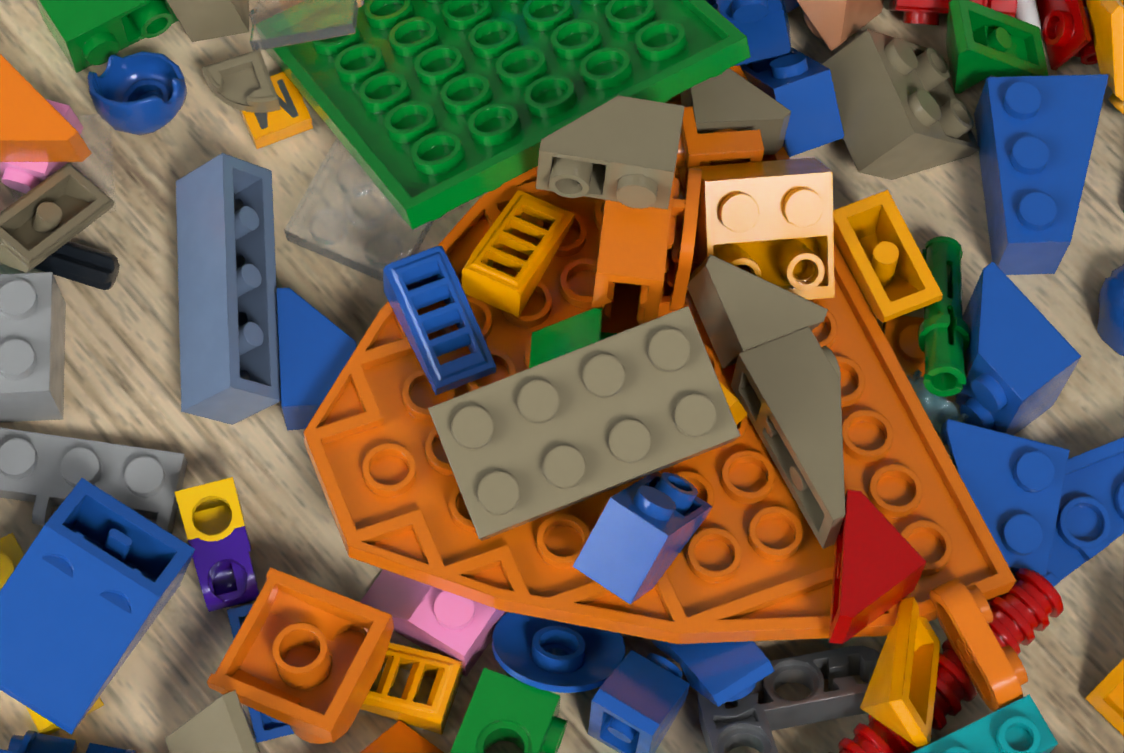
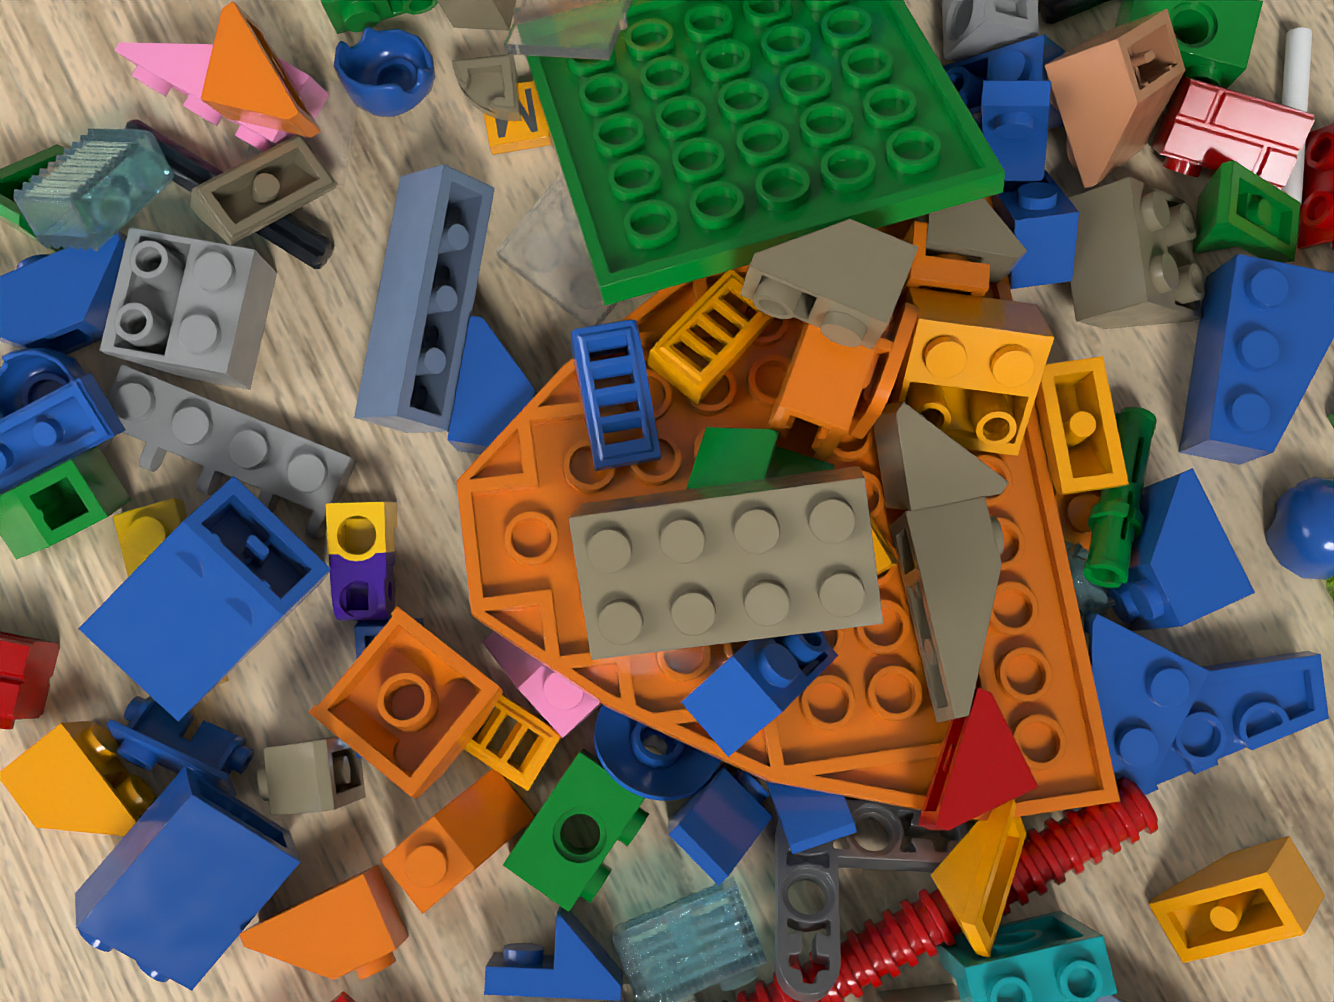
camera: 15 degrees right, 15 degrees up
(965, 621) = (1072, 892): orange plate -> none

